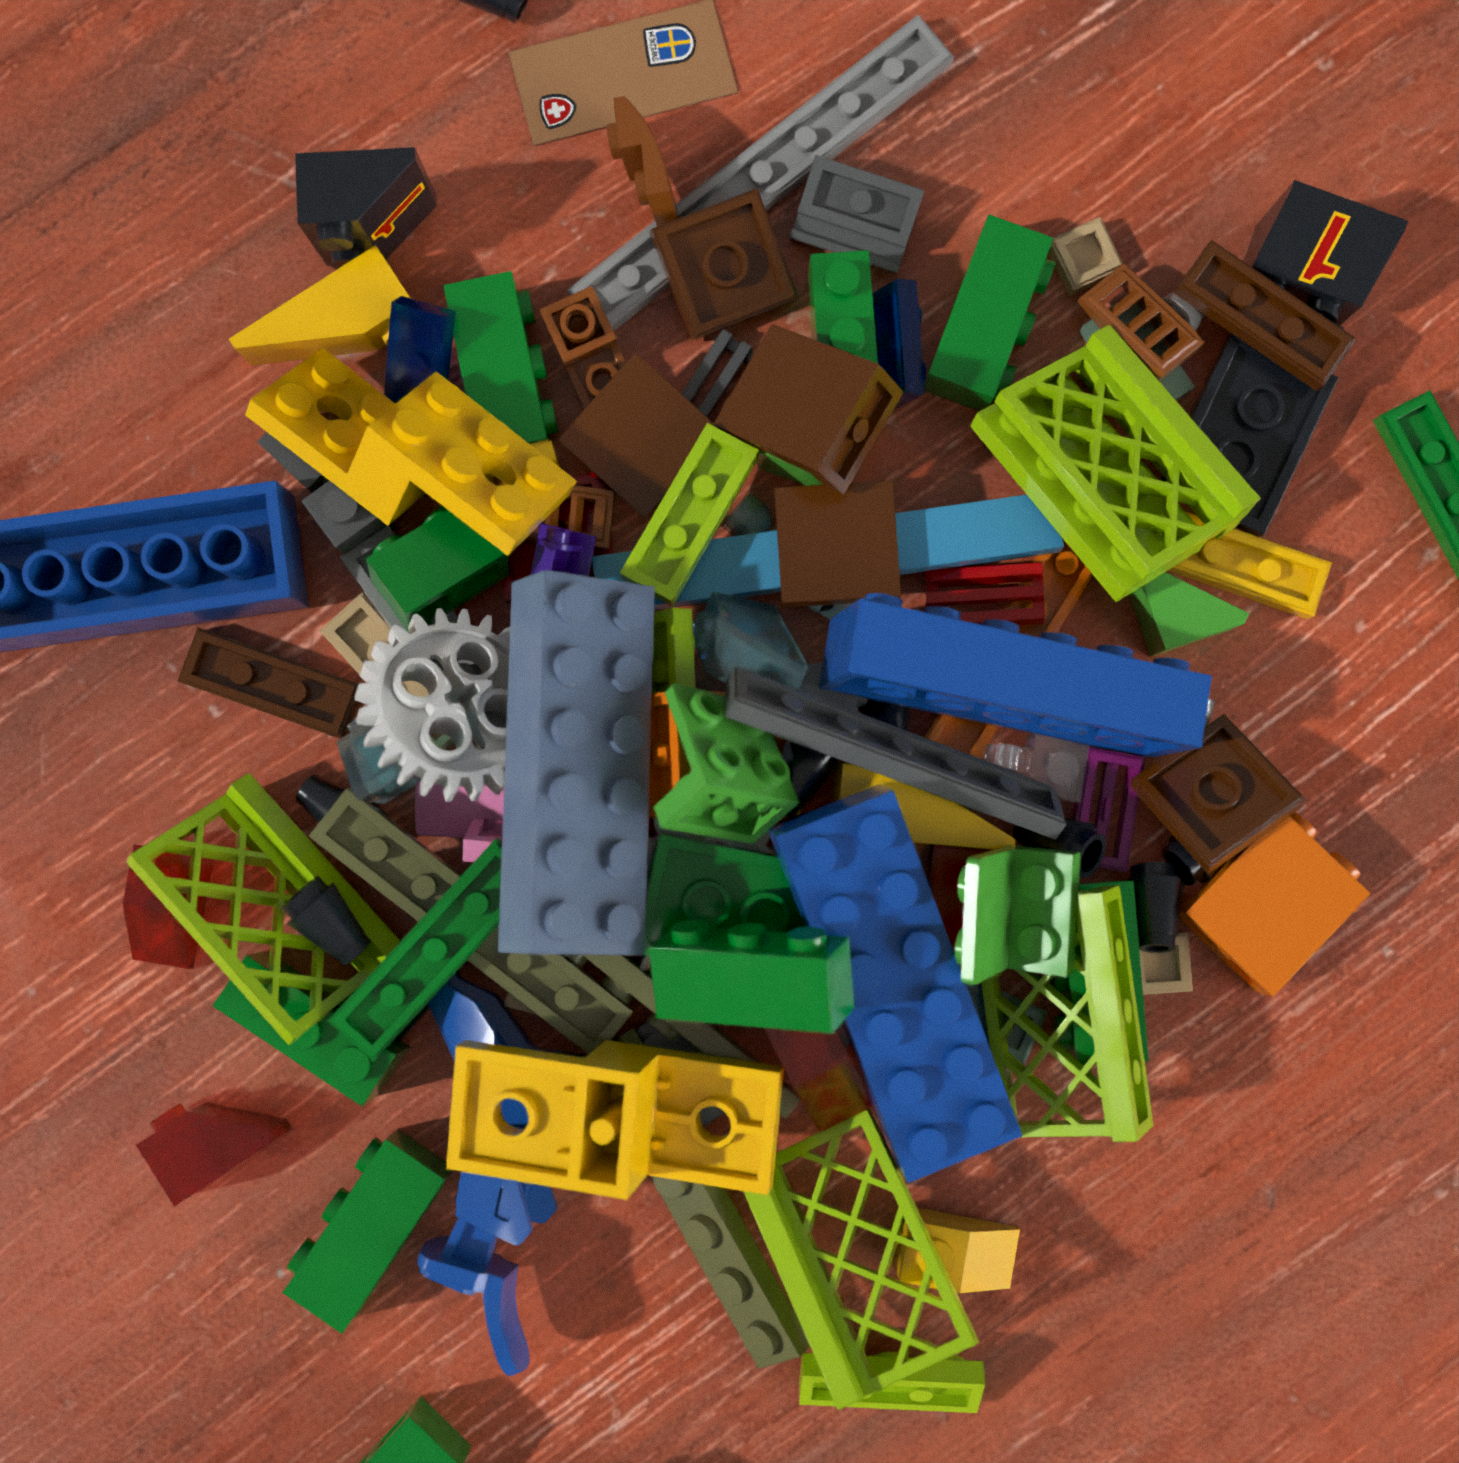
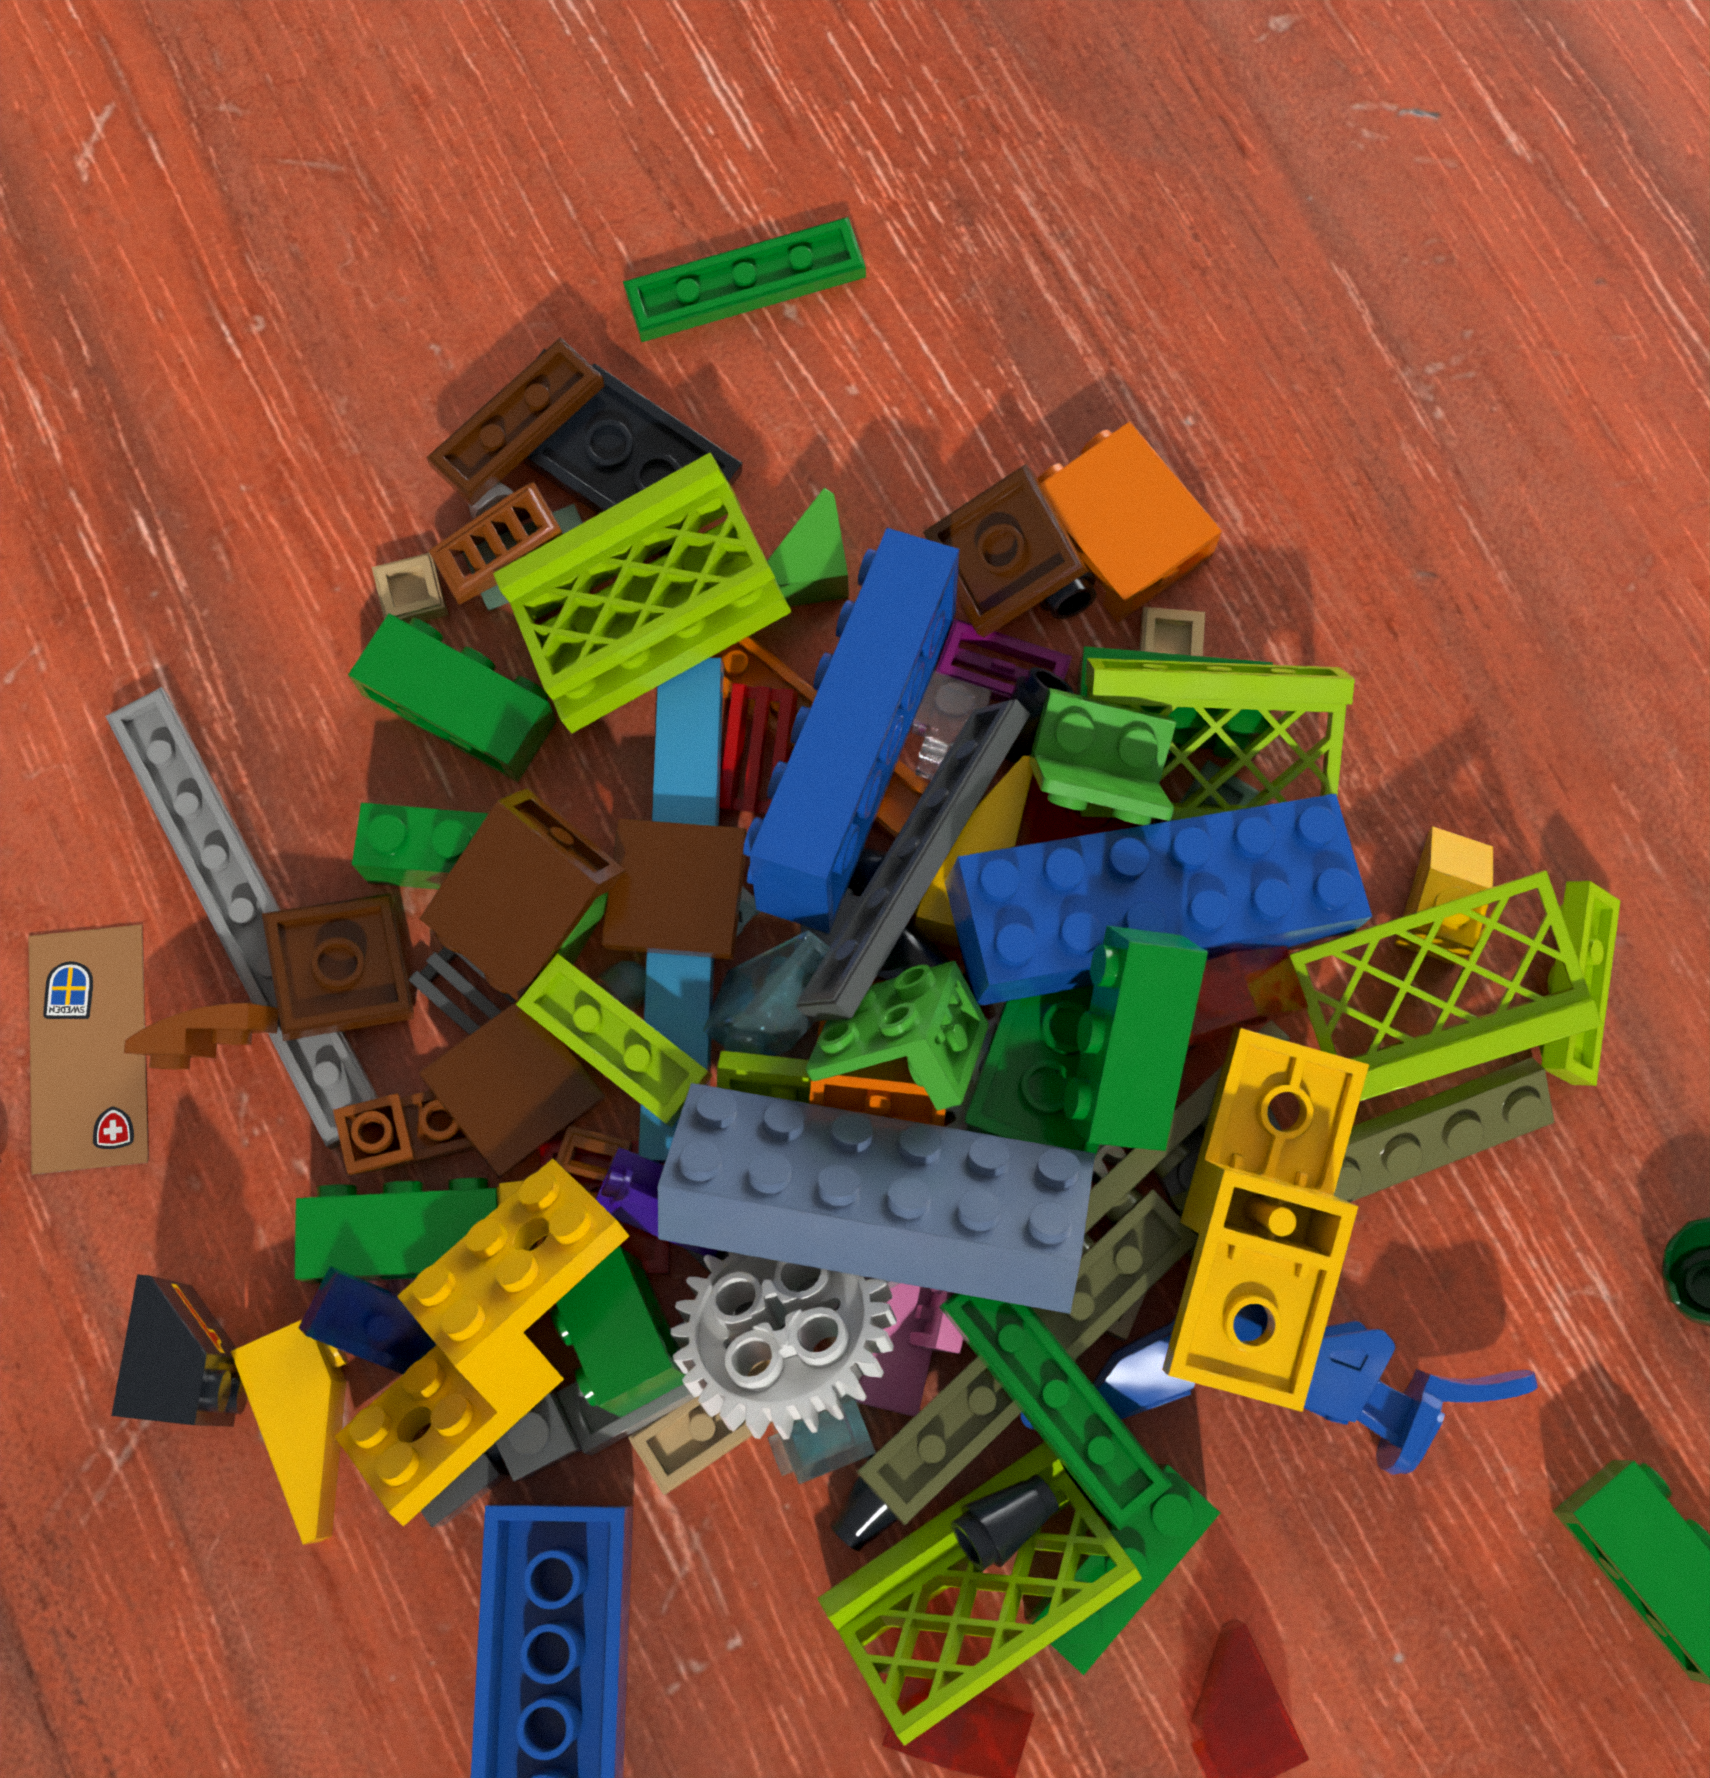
camera: 80 degrees left, 10 degrees down
(270, 683) = (713, 1566): reddish brown tile -> none
(365, 1229) = (1359, 1538): green brick -> none
(856, 212) = (311, 816): dark grey plate -> none
(899, 337) = (457, 786): clear blue plate -> none
(1157, 904) = (1111, 627): black cone -> none
(1259, 571) = (780, 473): yellow tile -> none
(1324, 248) = (459, 353): black slope -> none

